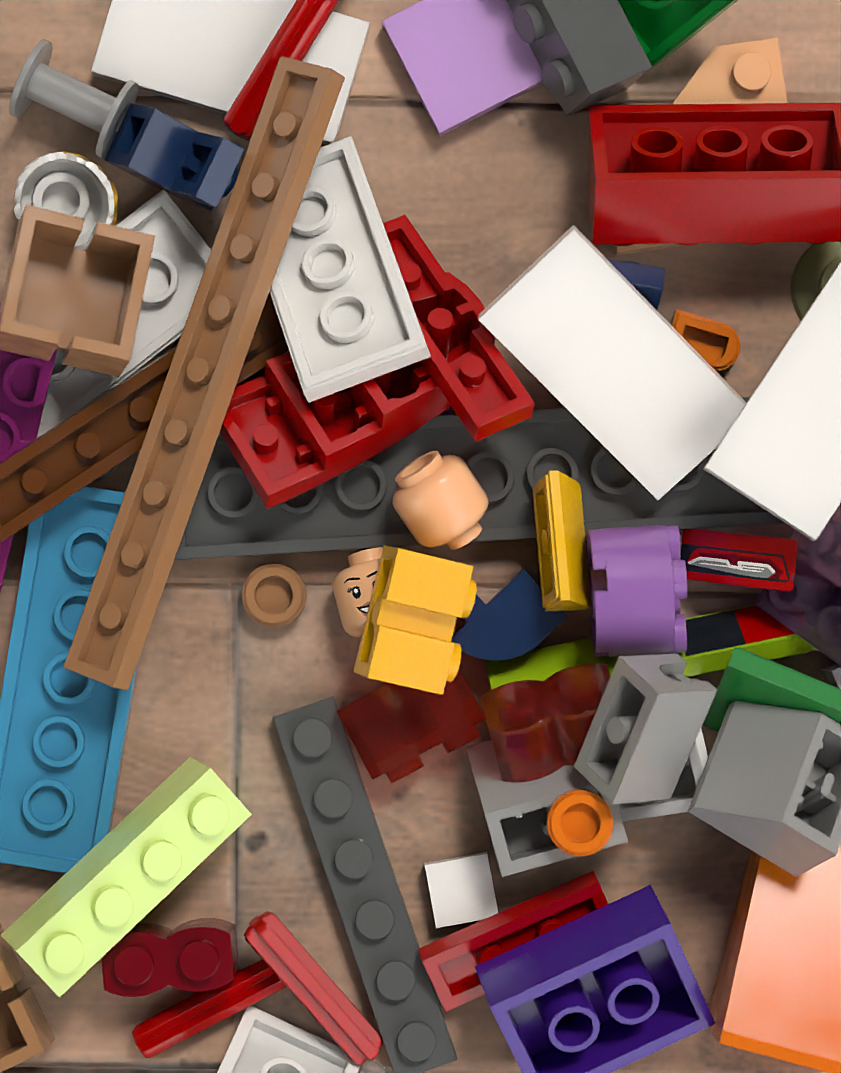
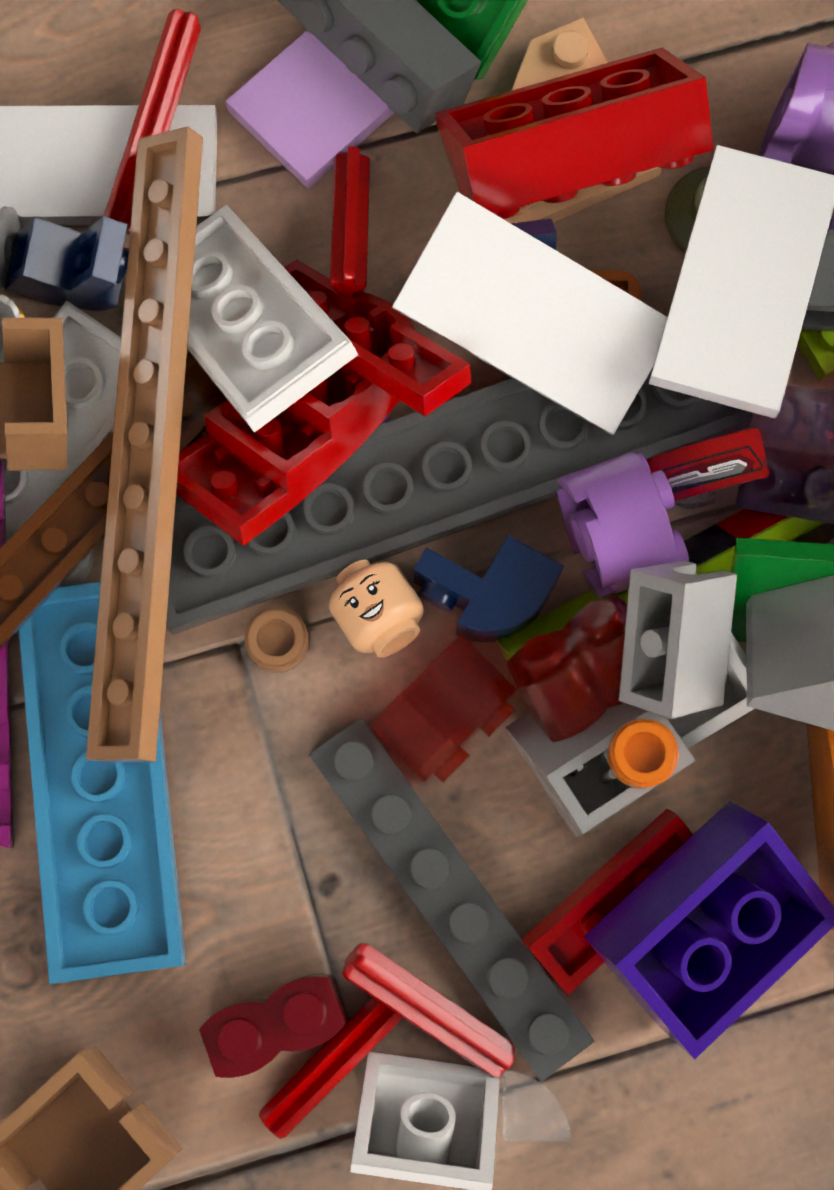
camera: 15 degrees left, 10 degrees down
(126, 875) = (205, 953): yellowish green brick -> none
(414, 620) = (417, 604): yellow brick -> none
(440, 500) = (408, 493): light nougat head -> none
(461, 889) = (544, 869): white tile -> none
(468, 197) = (350, 222): none -> red axle
(561, 543) = (534, 498): yellow slope -> none

